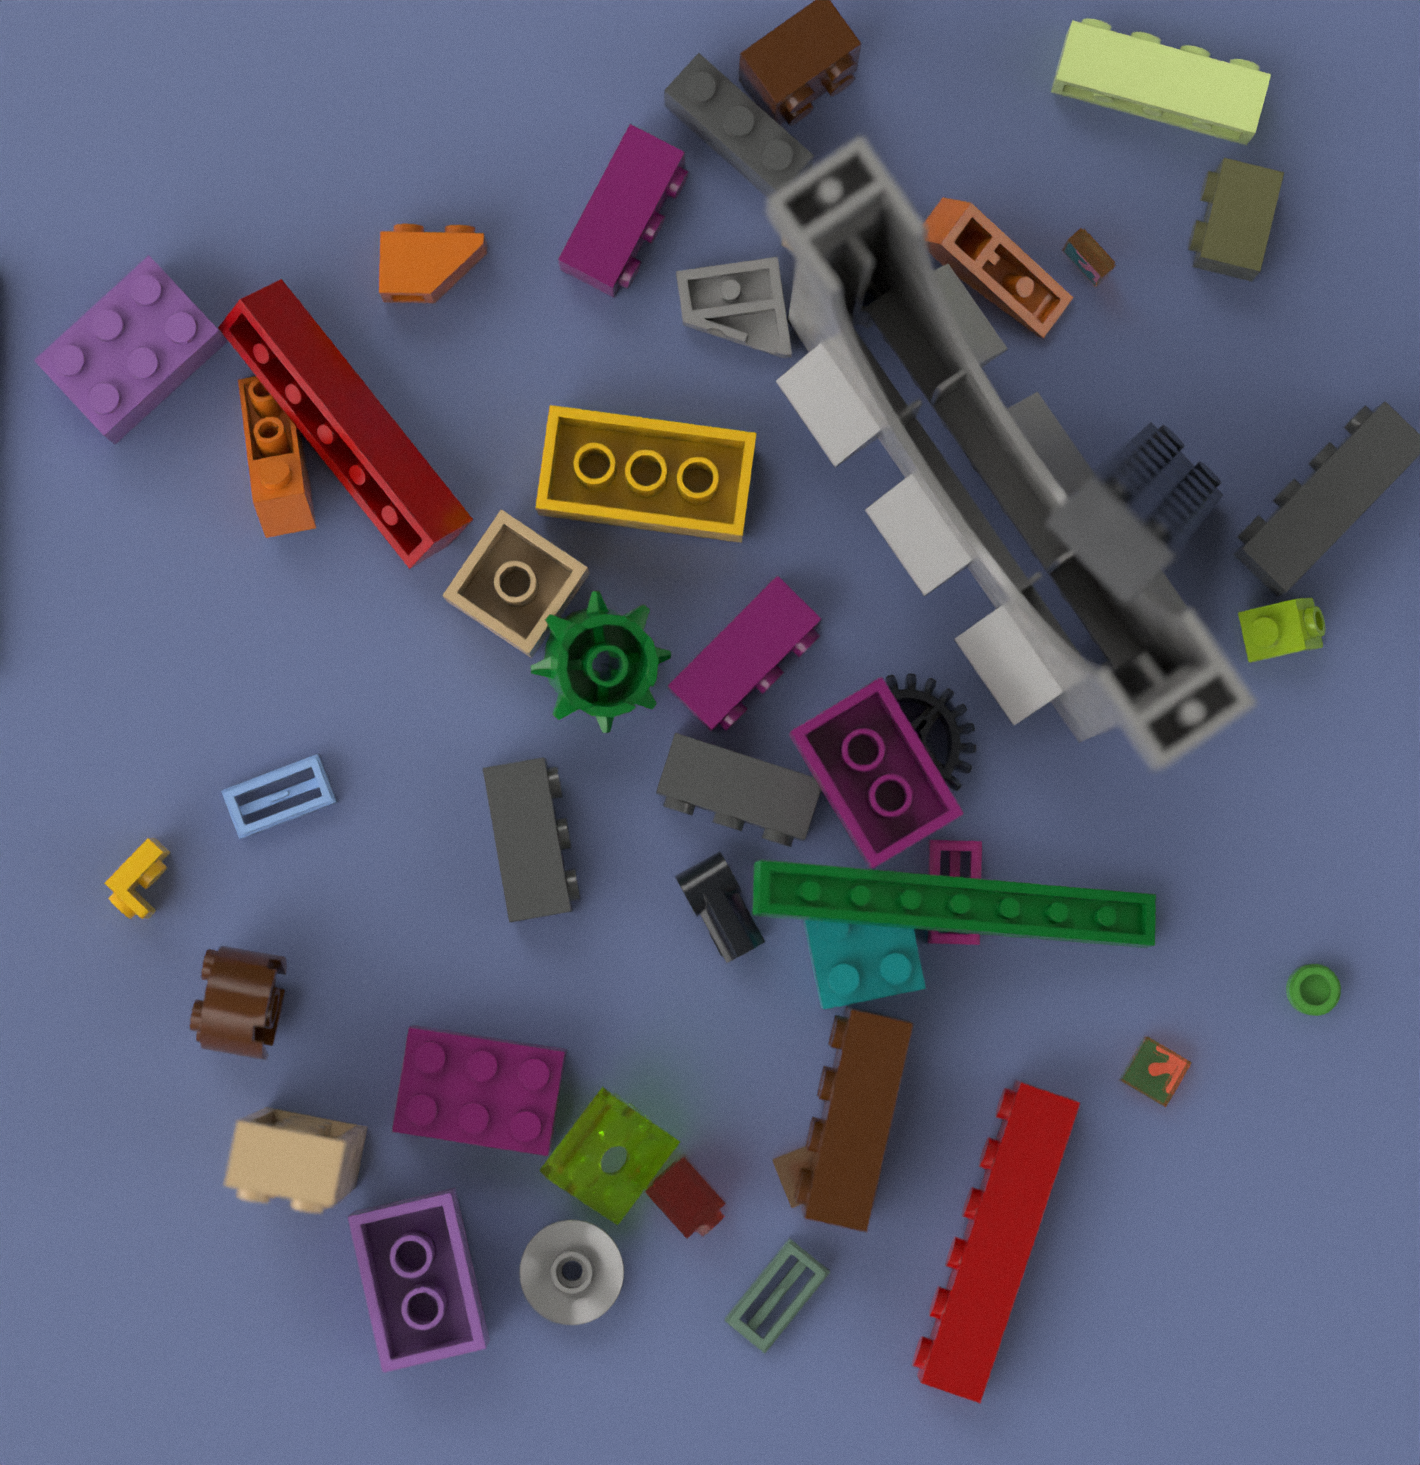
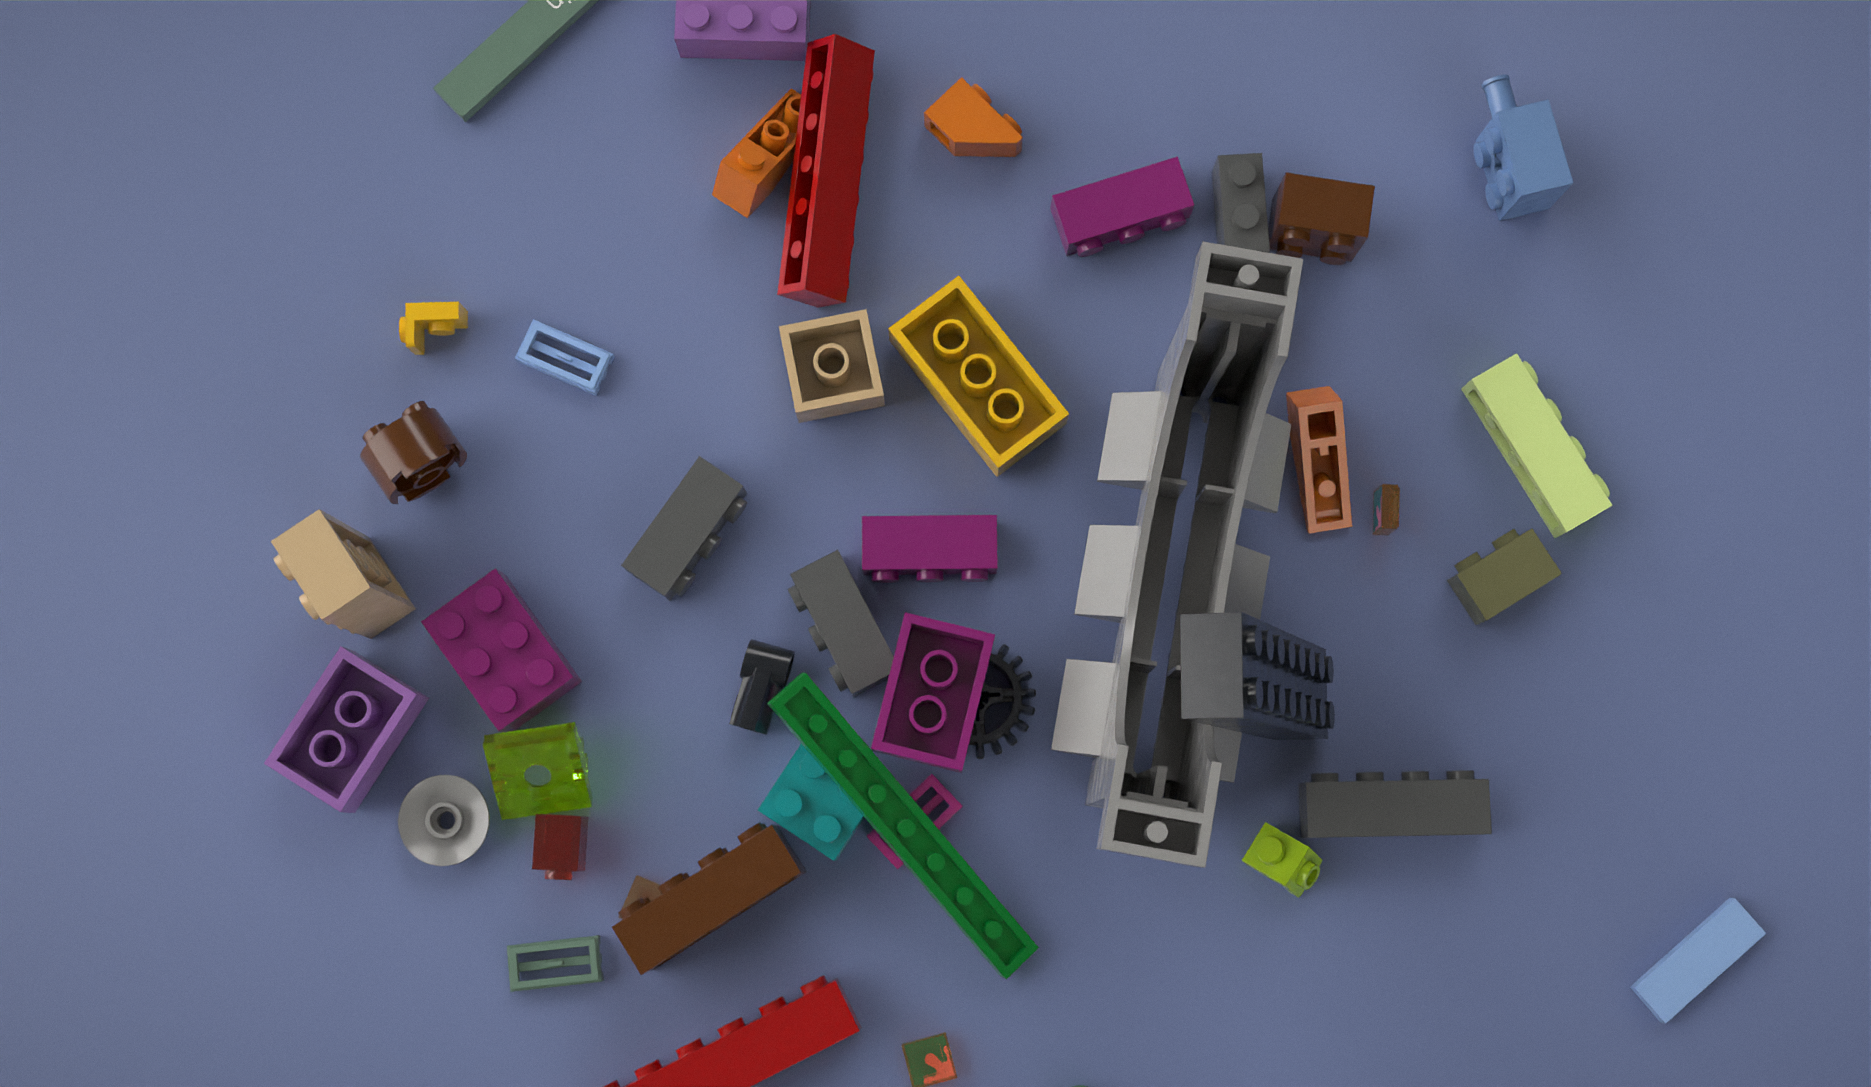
camera: 50 degrees right, 5 degrees down
(625, 678) = (839, 487): green brick -> none
(737, 304) = (1136, 329): light grey wing -> none

